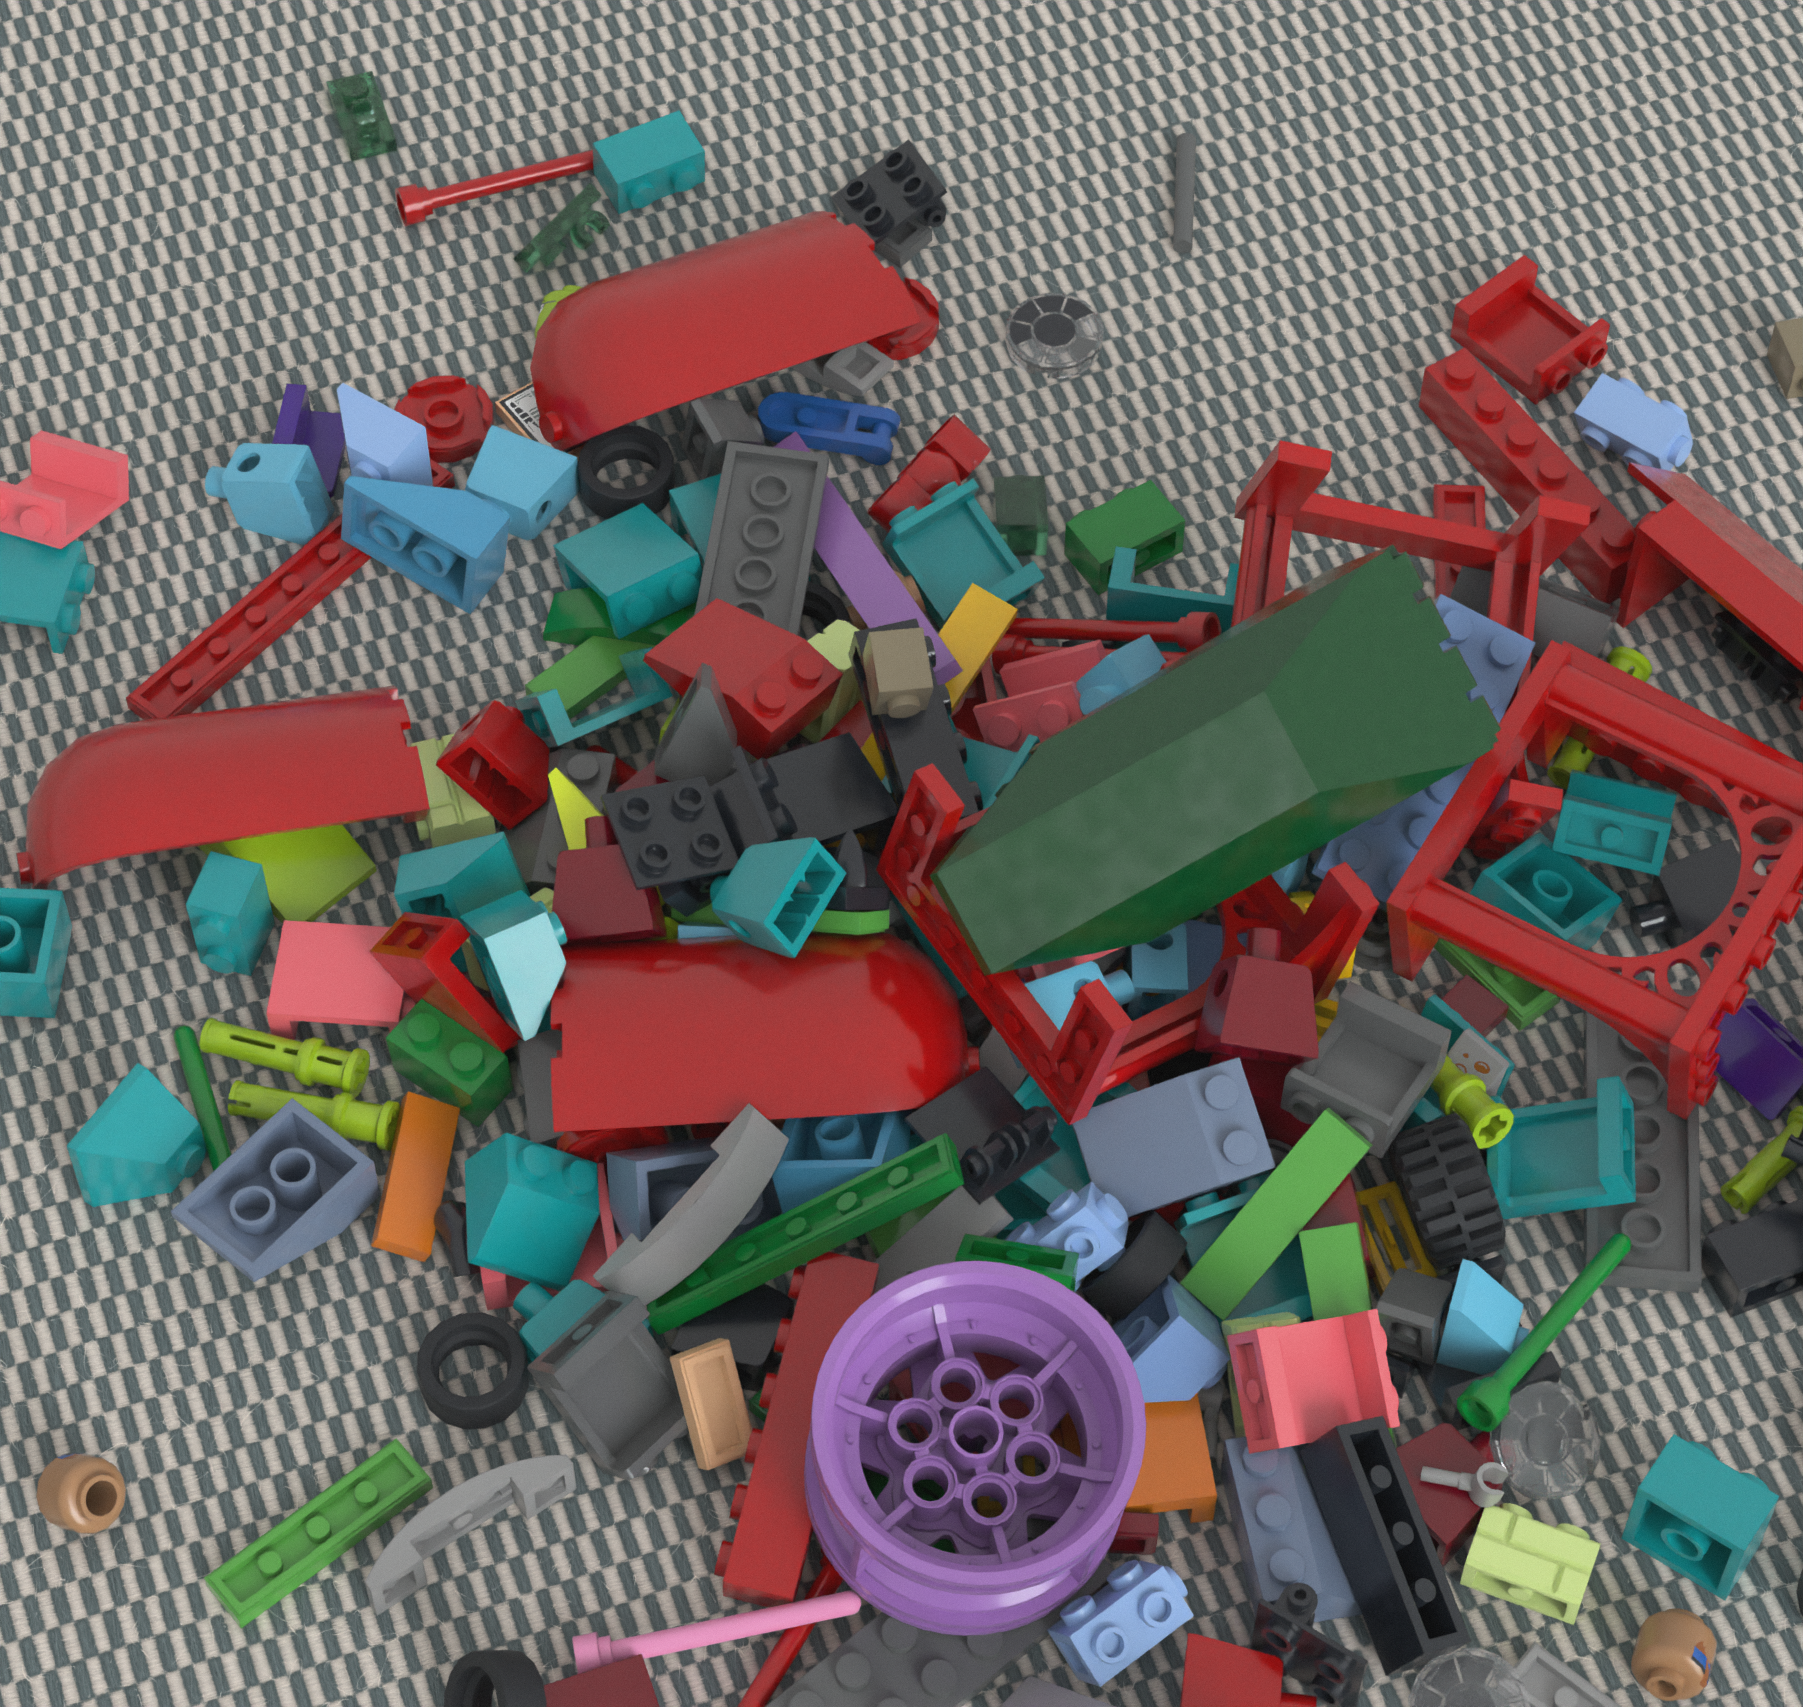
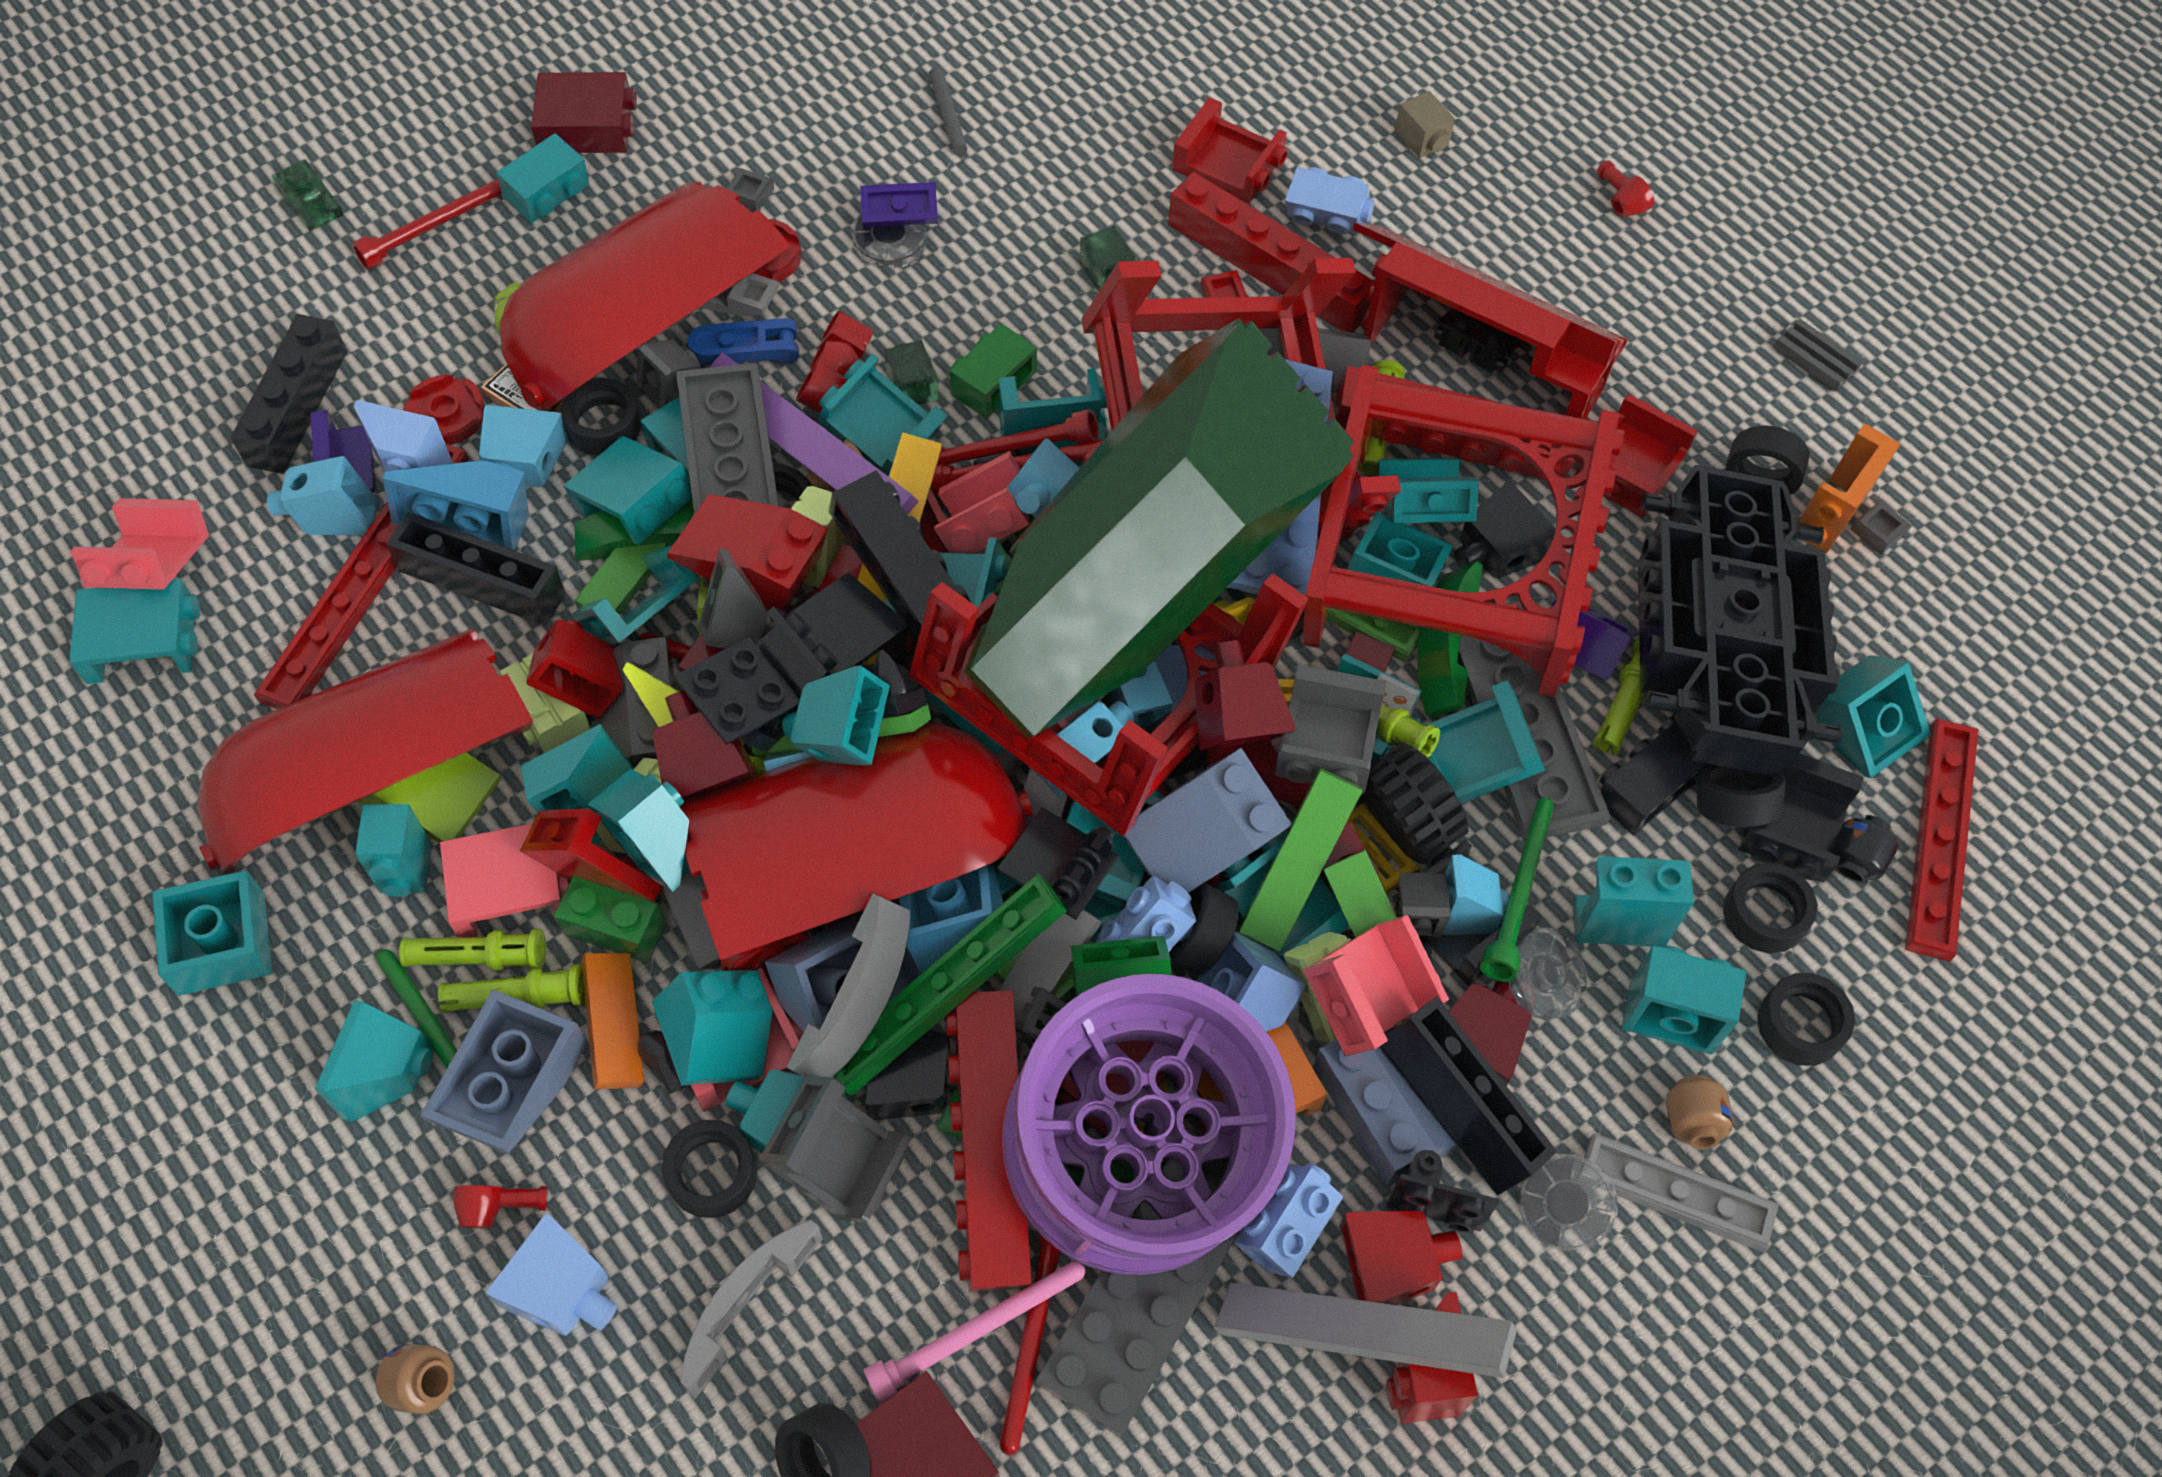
camera: 20 degrees left, 5 degrees up
(207, 1332) = (479, 1204): none -> red bar
(260, 1439) = (553, 1282): none -> light blue torso
(268, 354) = (289, 393): none -> black brick
(318, 1533) = (624, 1346): bright green tile -> none
(422, 618) = (476, 568): none -> black brick
(573, 218) = (498, 233): clear green plate -> none
(712, 1403) = (913, 1139): light nougat tile -> none
(726, 88) = (585, 110): none -> dark red brick
(893, 194) = (737, 158): black hinge -> none
(898, 672) = (878, 515): dark tan brick -> none
(1076, 299) = (899, 204): none -> dark purple panel
(1320, 423) = (1101, 253): none -> clear green brick
(1473, 1483) = (1514, 1026): light grey hand -> none
(1530, 1561) = (1570, 1071): yellowish green brick -> none
(1549, 1053) = (1439, 674): none -> green slope
(1678, 1382) = (1634, 902): none -> teal panel

